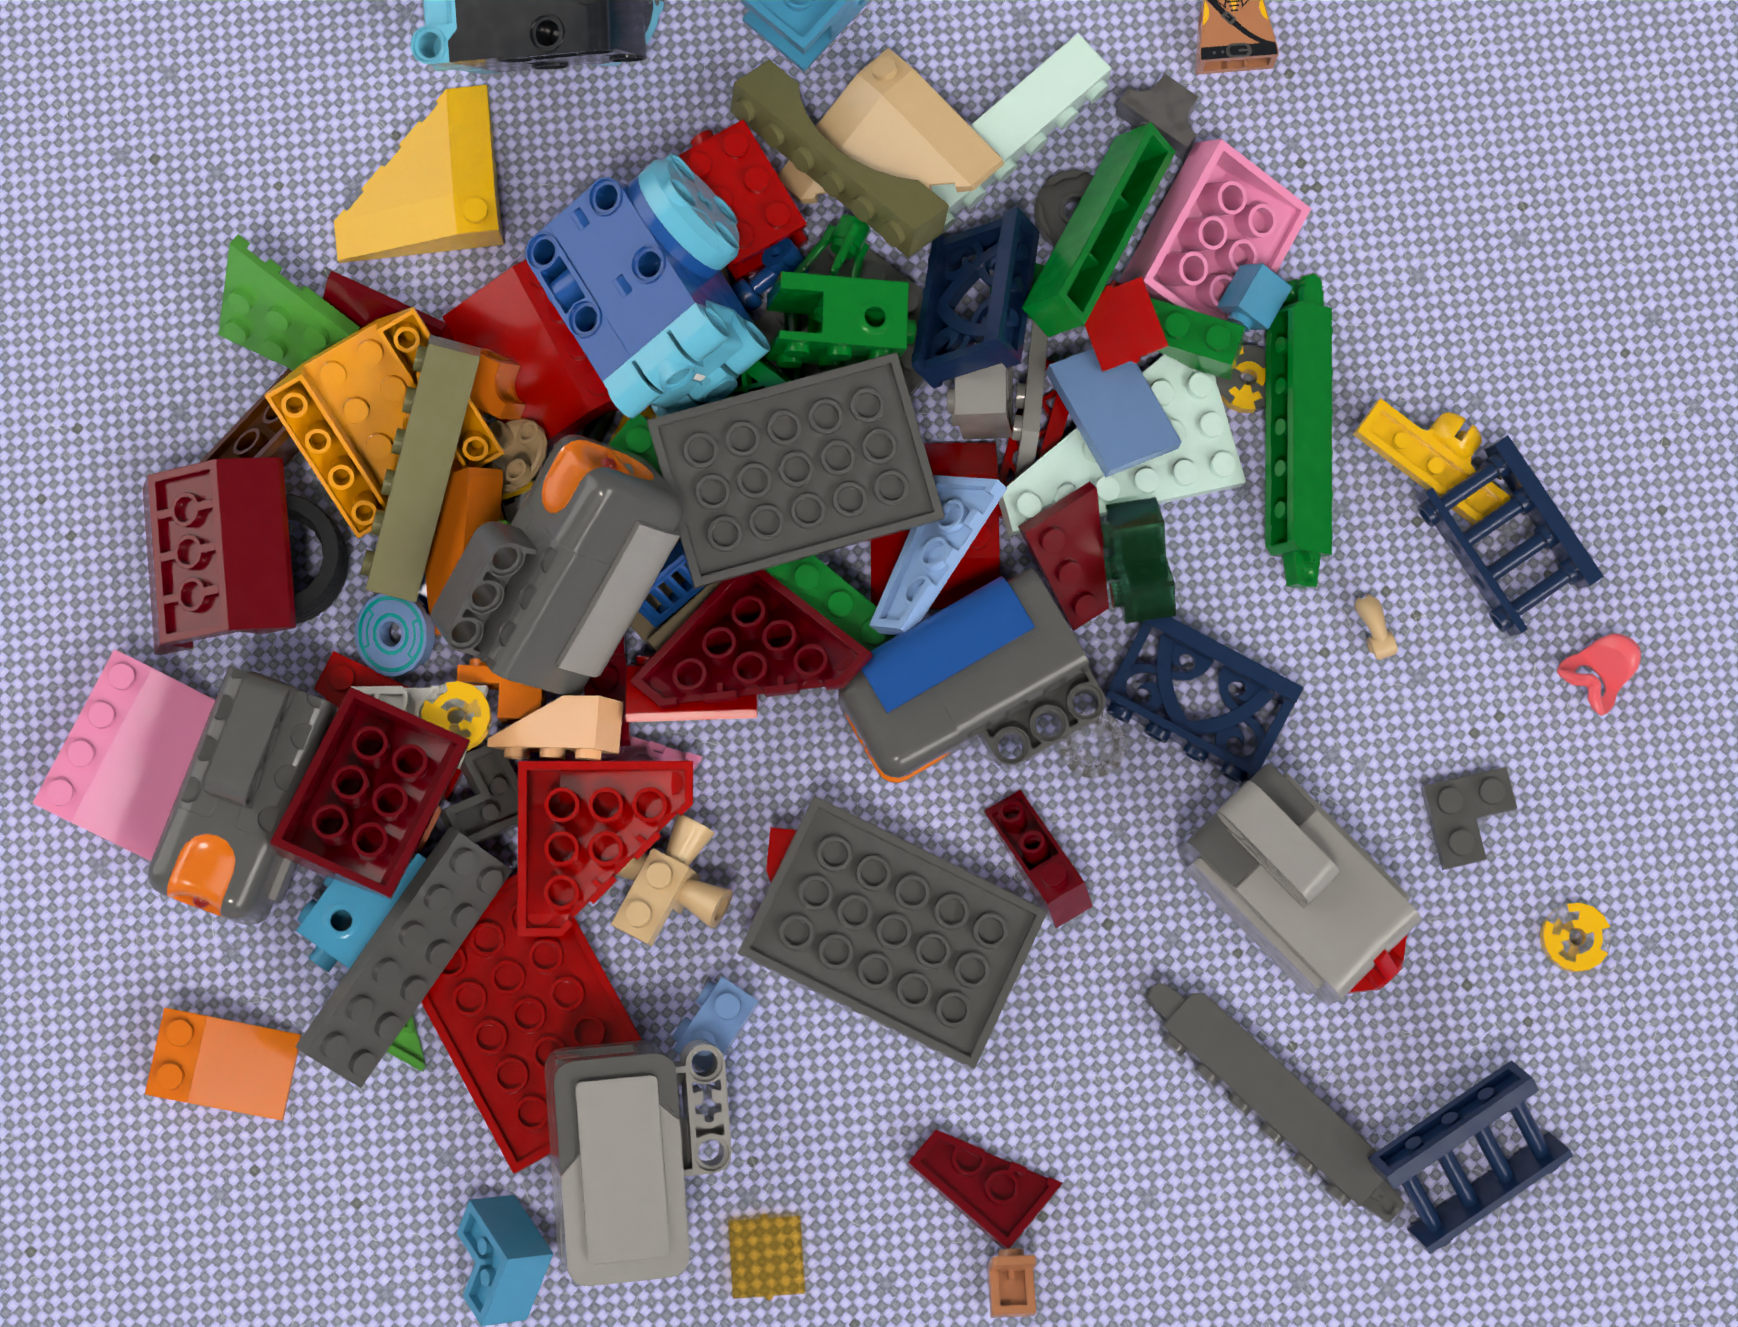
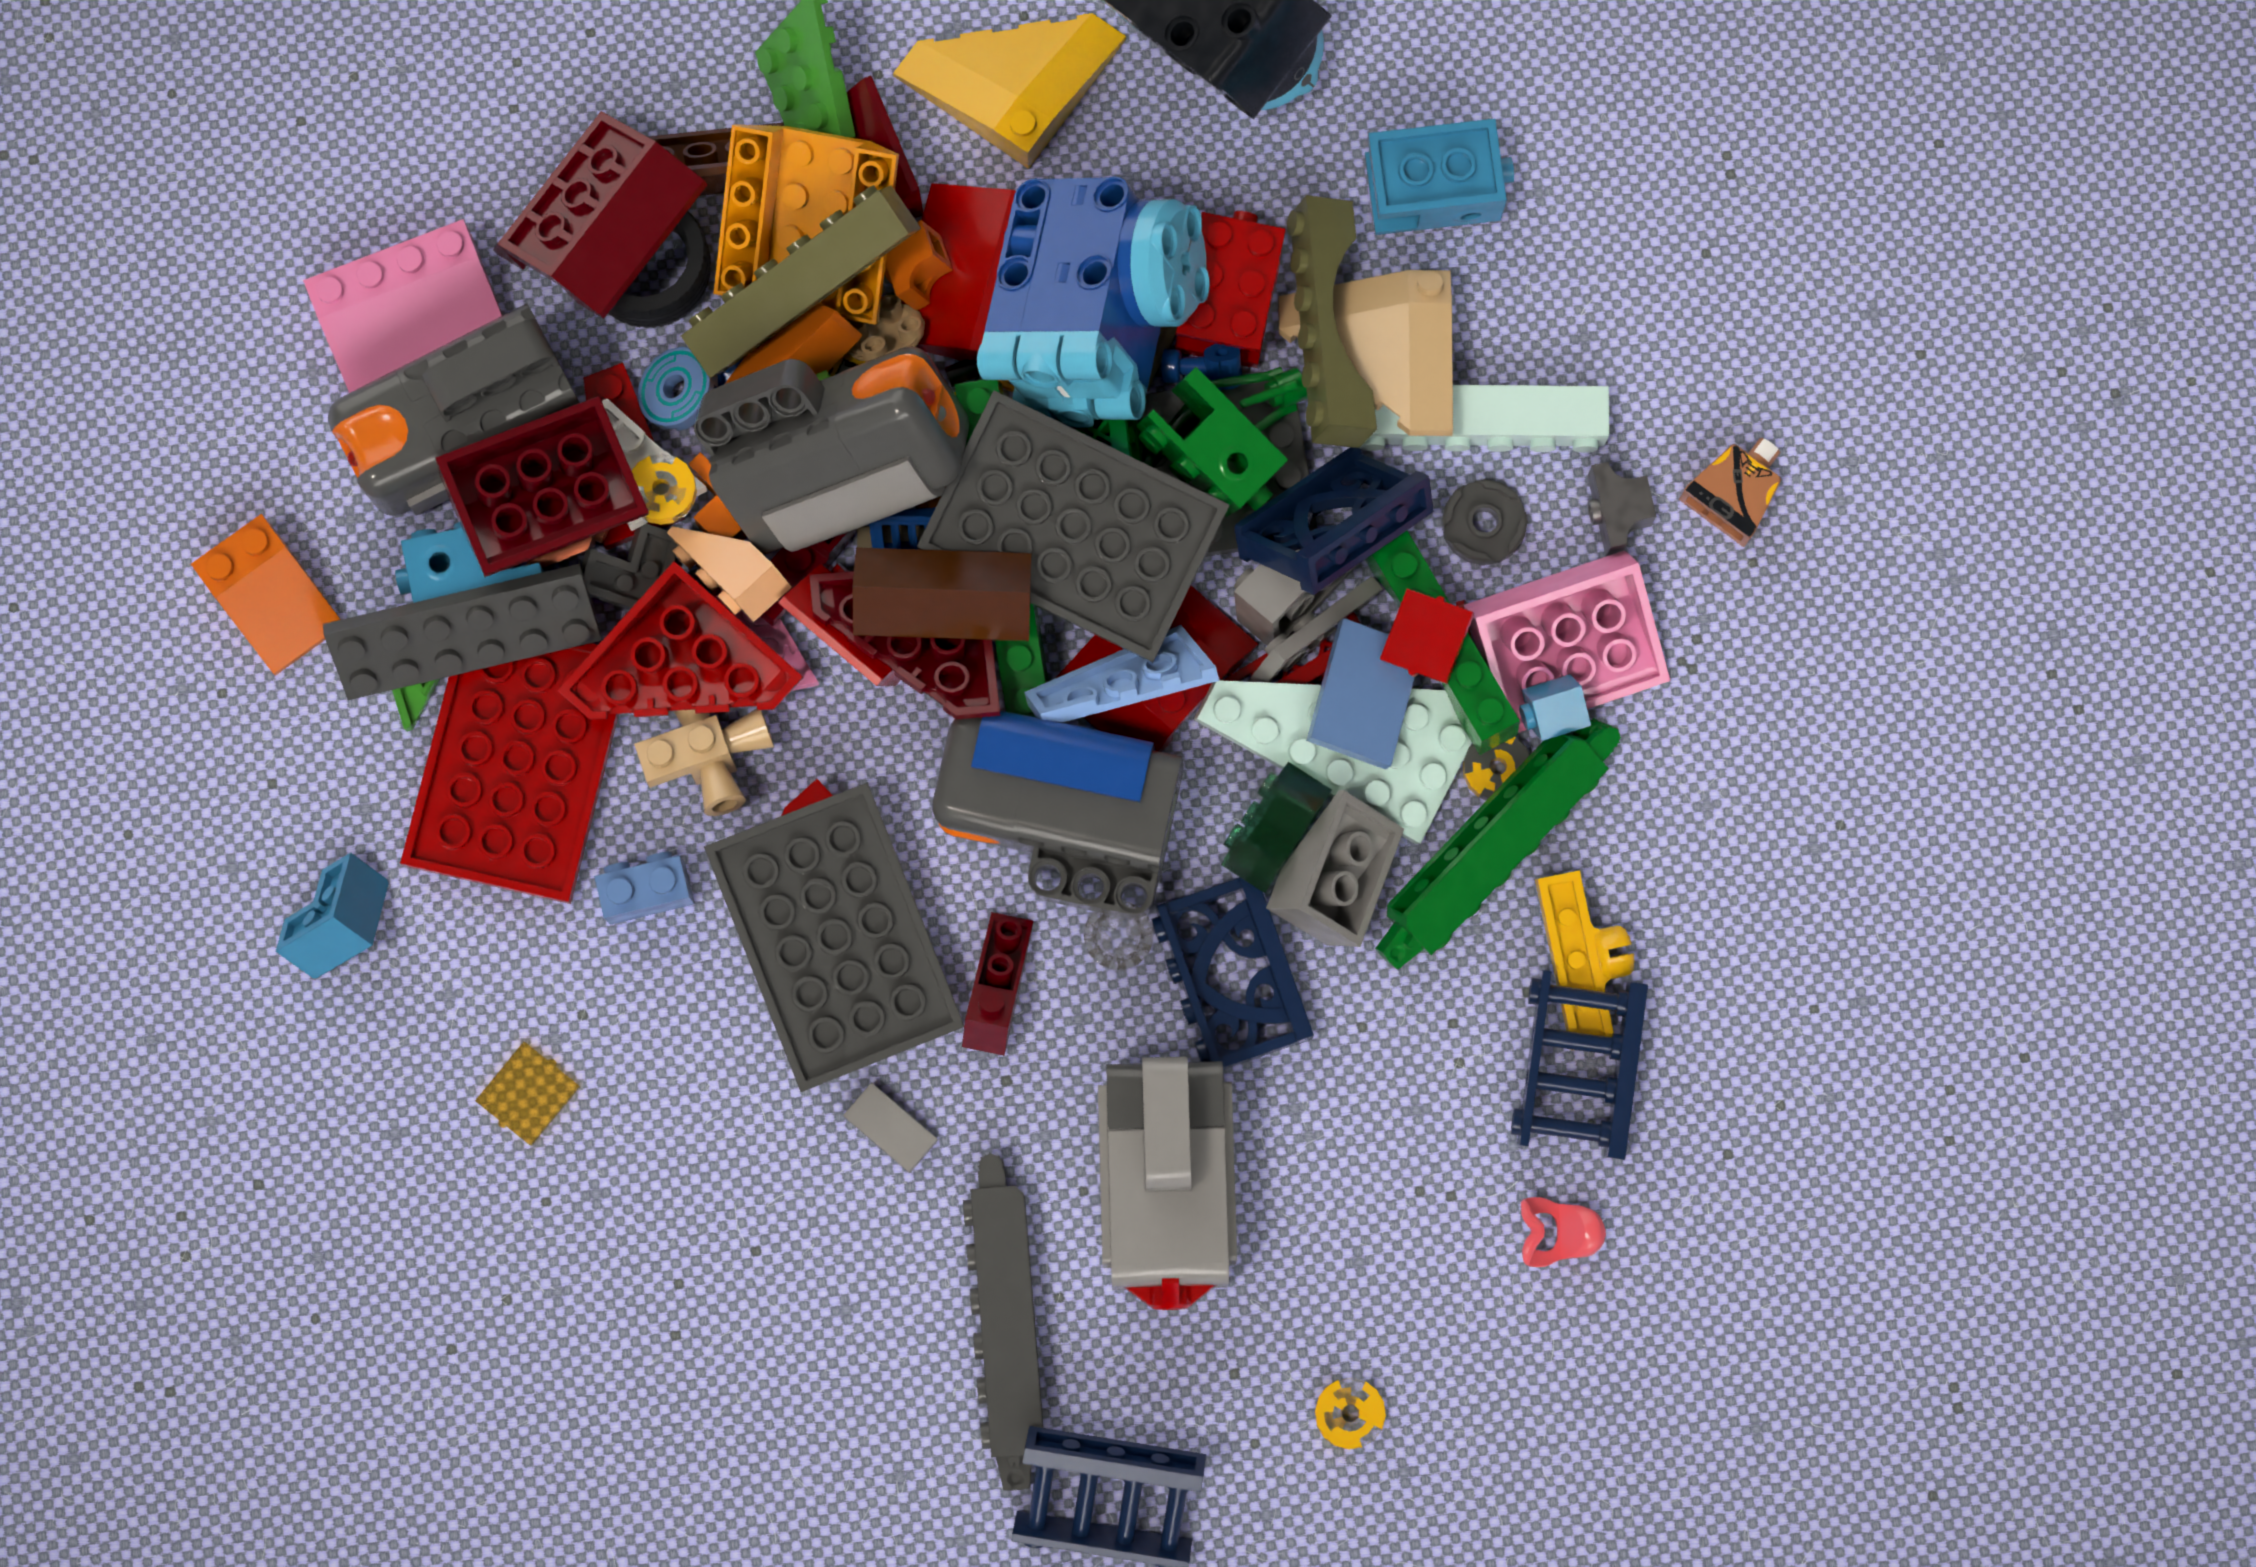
camera: 45 degrees right, 0 degrees up
(625, 1155) = (487, 915): light grey piece -> none
(747, 604) = (941, 594): none -> reddish brown slope
(986, 1189) = (731, 1191): dark red wing -> none
(1011, 1284) = (684, 1277): nougat bracket -> none
(1058, 1035) = (890, 1127): none -> light grey tile
(1071, 555) = (1228, 774): dark red wing -> none
(1099, 230) = (1476, 549): green brick -> none
(1213, 555) = (1337, 872): none -> light grey slope
(1381, 642) = (1422, 1029): tan arm -> none
(1454, 812) = (1353, 1232): dark grey plate -> none

